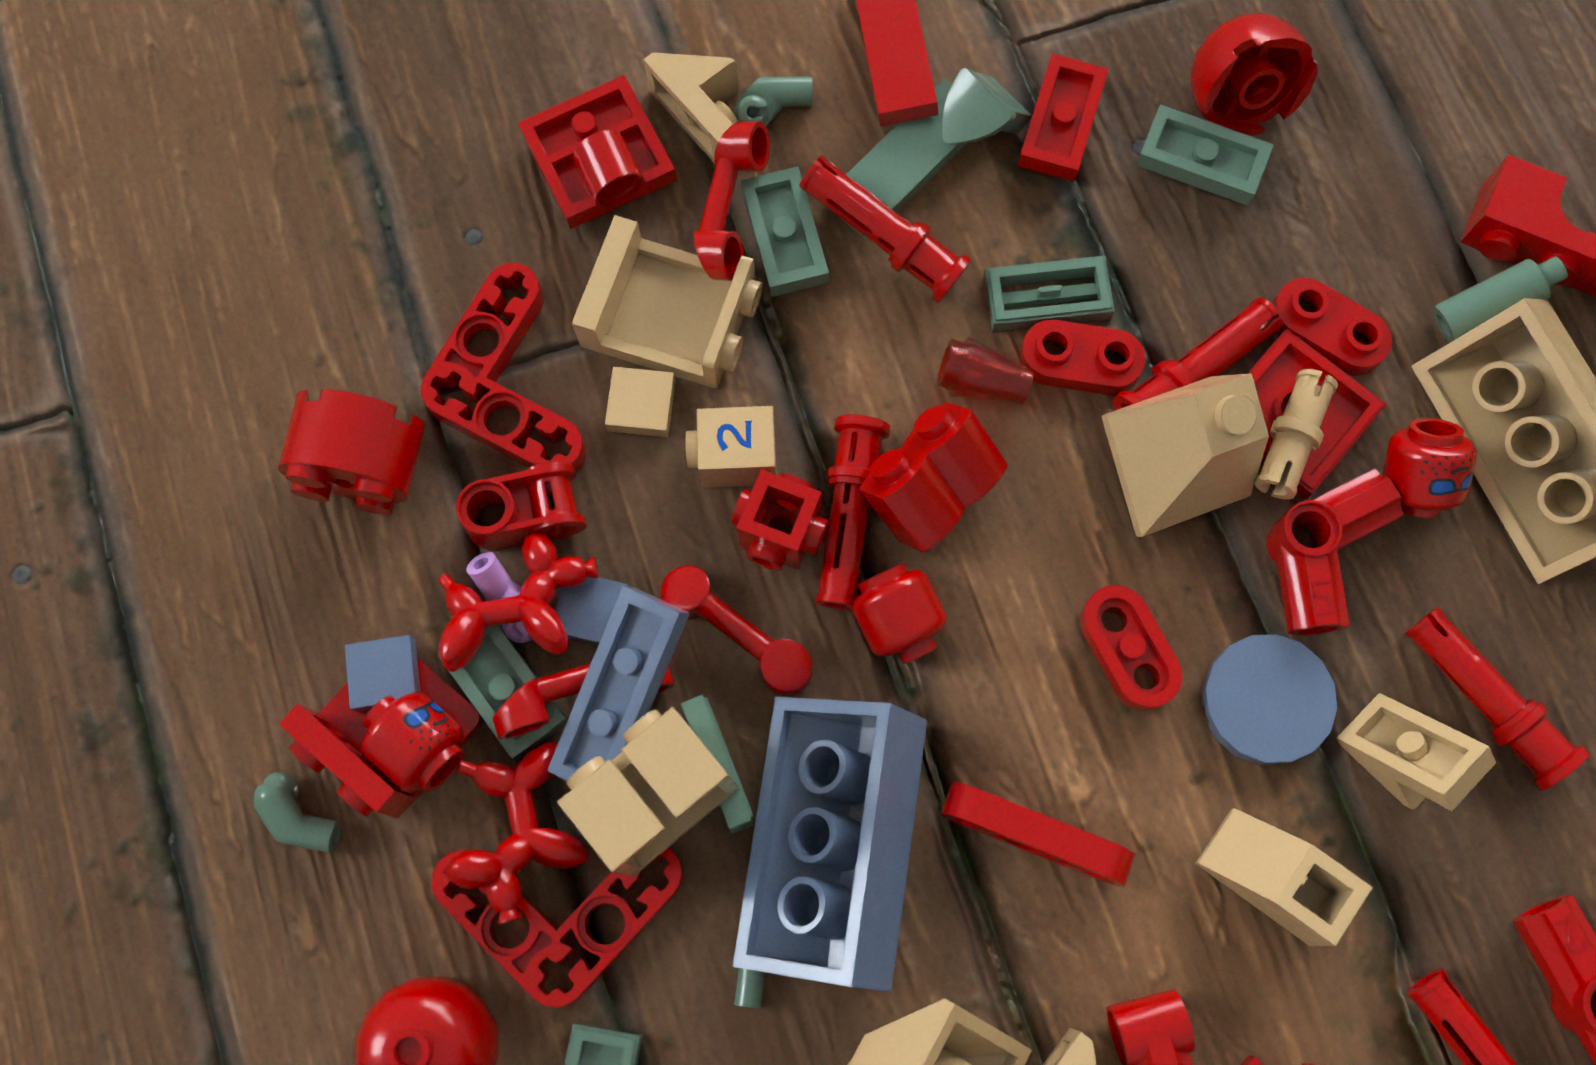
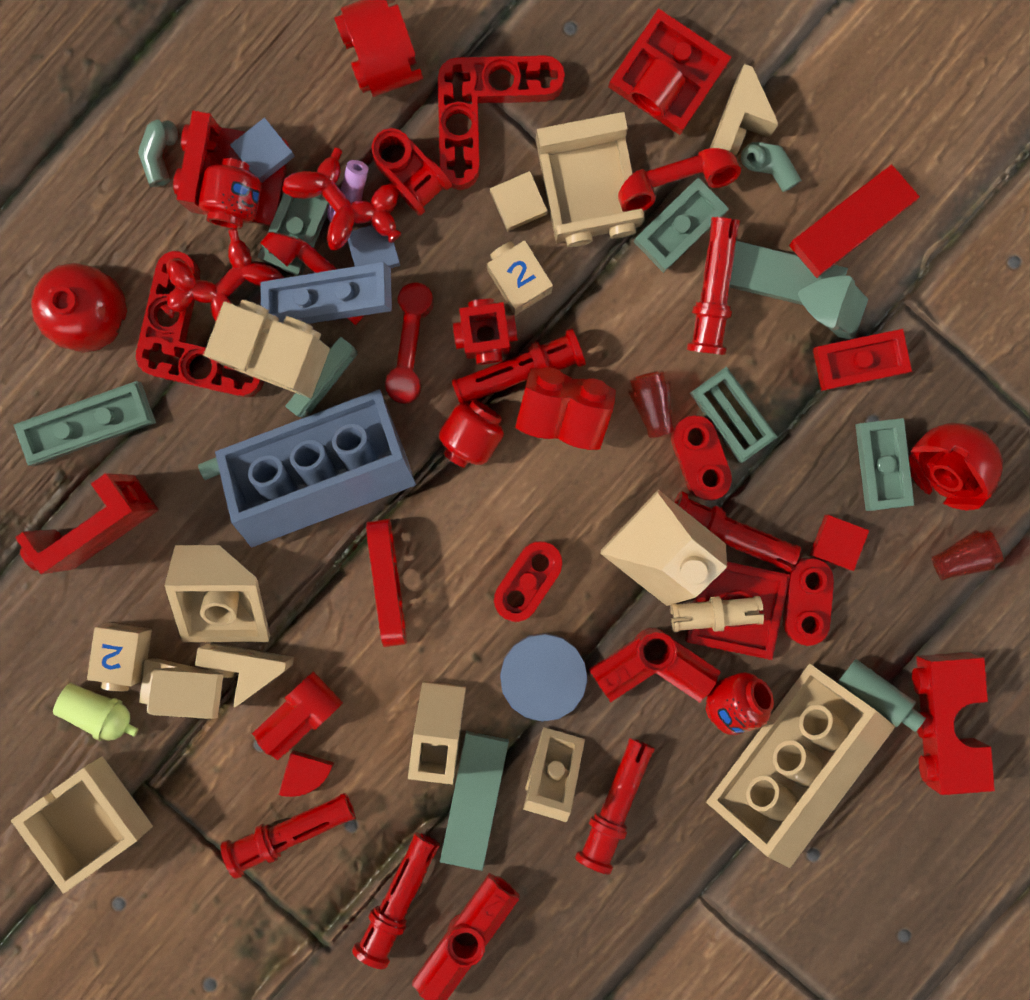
camera: 55 degrees right, 15 degrees up
(1273, 254) = (839, 542): none -> red tile
(1365, 118) = (969, 555): none -> clear red cone
(1405, 888) = (474, 800): none -> sand green tile

